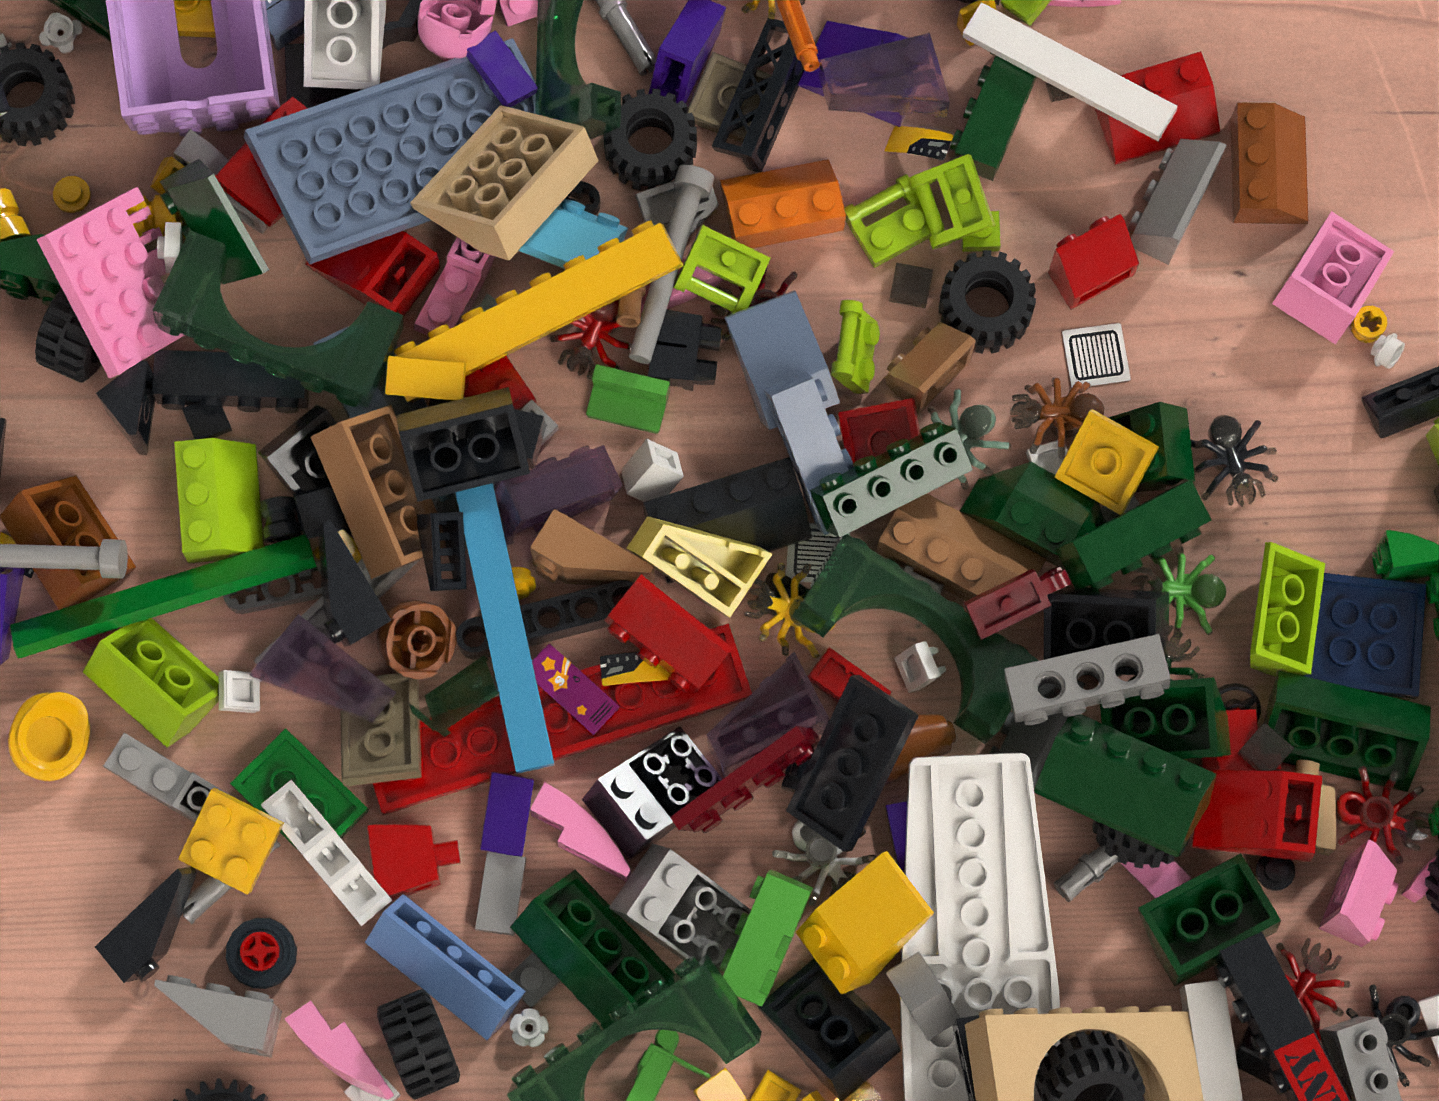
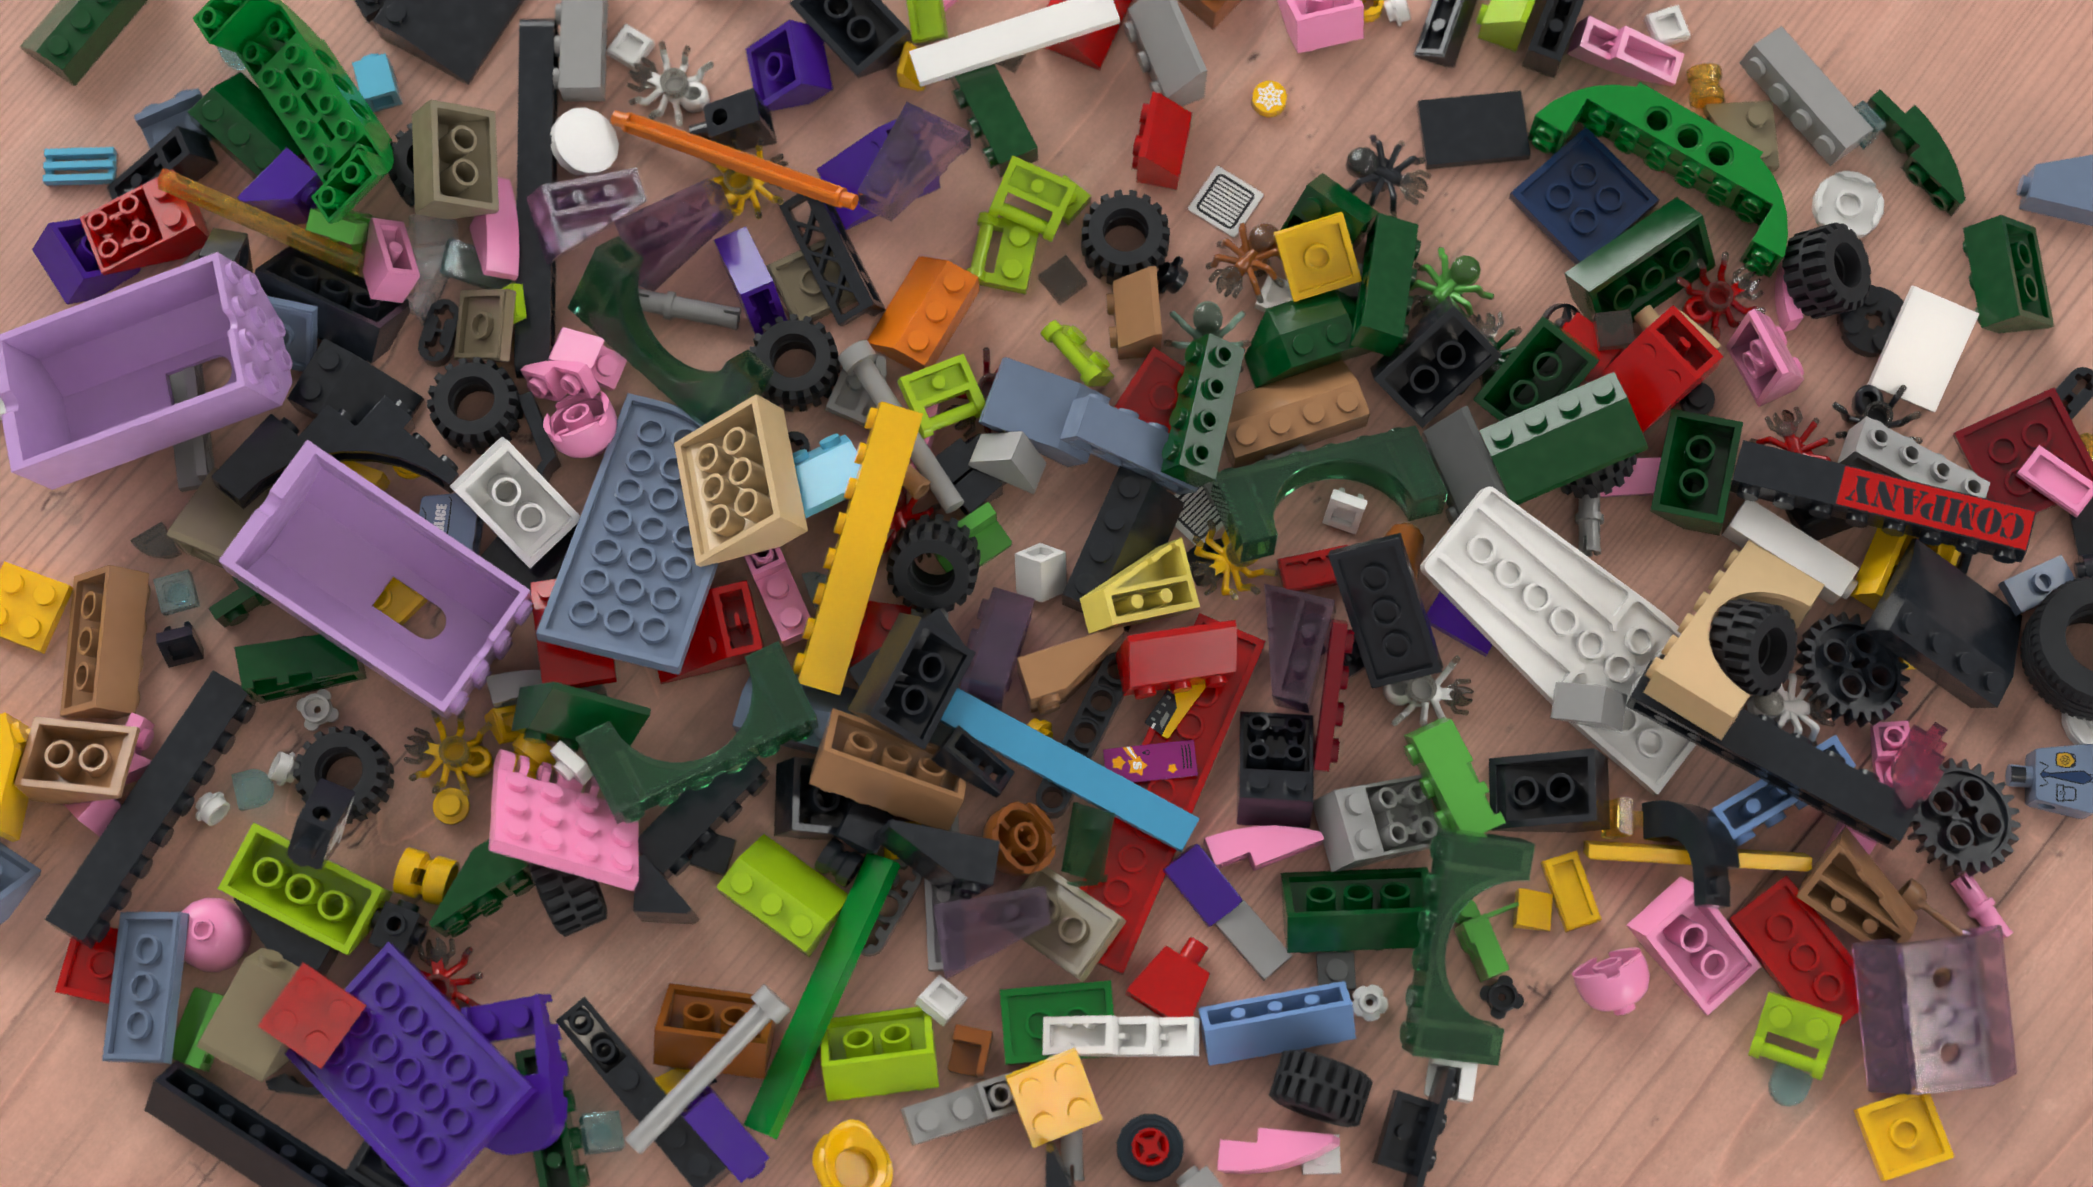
camera: 45 degrees left, 0 degrees up
(111, 157) = (453, 751): none -> animal
(219, 749) = (970, 1051): none -> dark orange panel
(425, 378) = (837, 666): yellow tile -> none
(501, 70) = (648, 420): dark purple tile -> none
(554, 387) = (927, 589): none -> black tyre
(718, 368) = (1009, 458): none -> light grey slope
(864, 924) = (1504, 701): yellow slope -> none
(919, 142) = (965, 183): sticker -> none
(990, 365) = (1171, 276): none -> black plate
(1014, 600) = (1364, 401): dark red plate -> none
(1141, 654) = (1488, 348): light grey brick -> none
(1214, 315) = (1269, 98): none -> yellow tile
(1286, 612) = (1527, 233): lime slope -> none
(1340, 498) = (1473, 130): none -> black tile

